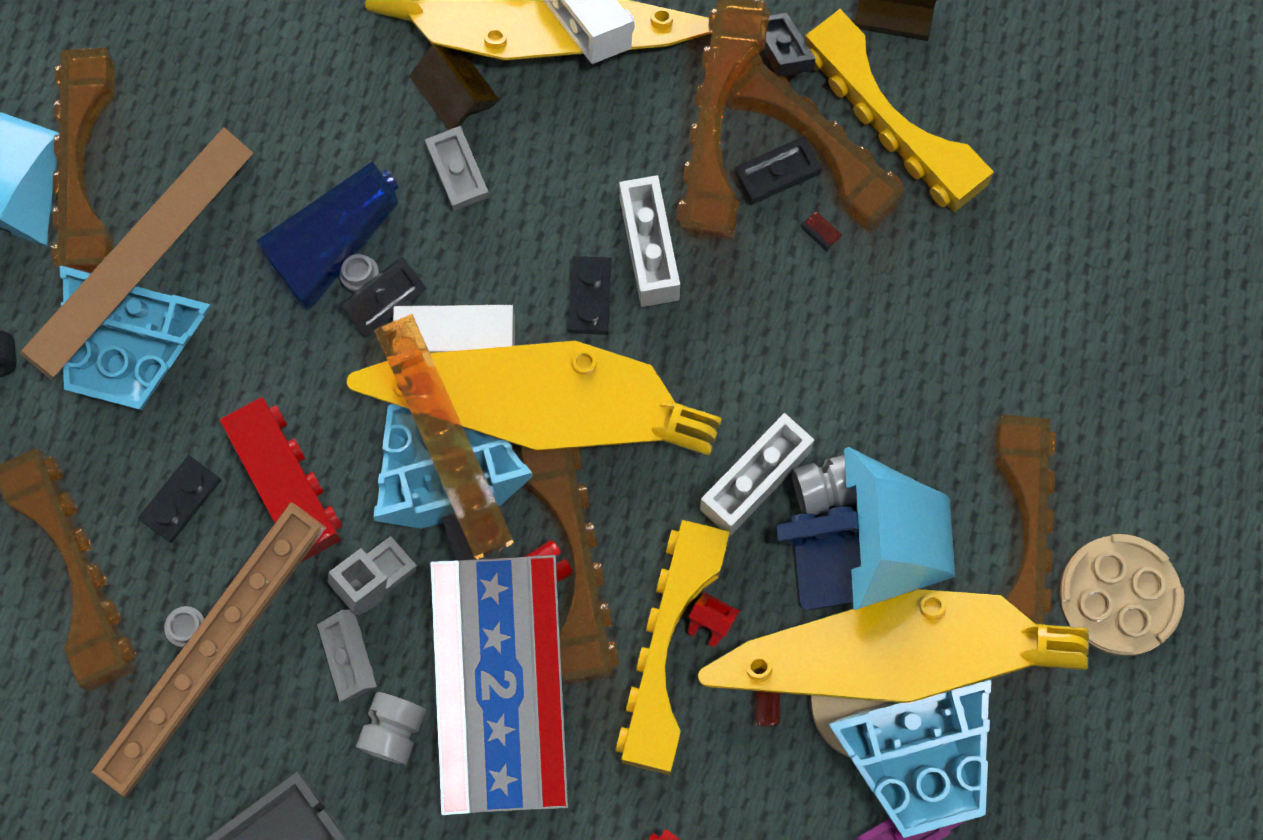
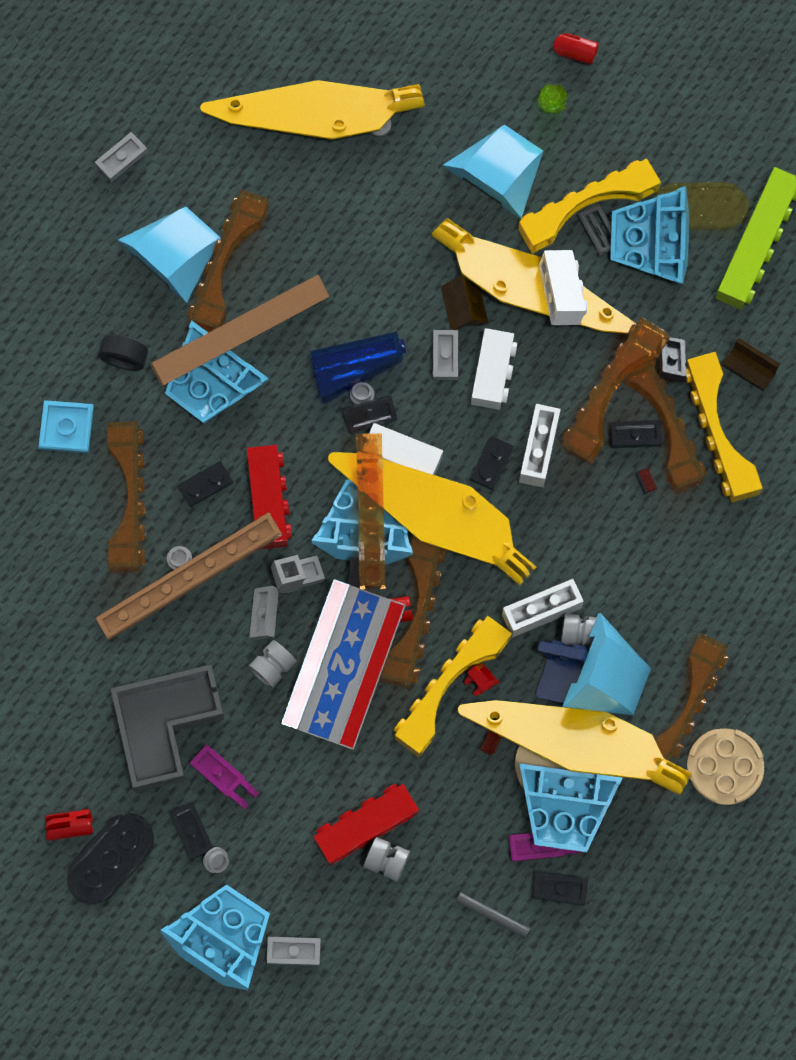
camera: 20 degrees right, 0 degrees up
(535, 160) = (493, 369): none -> white brick

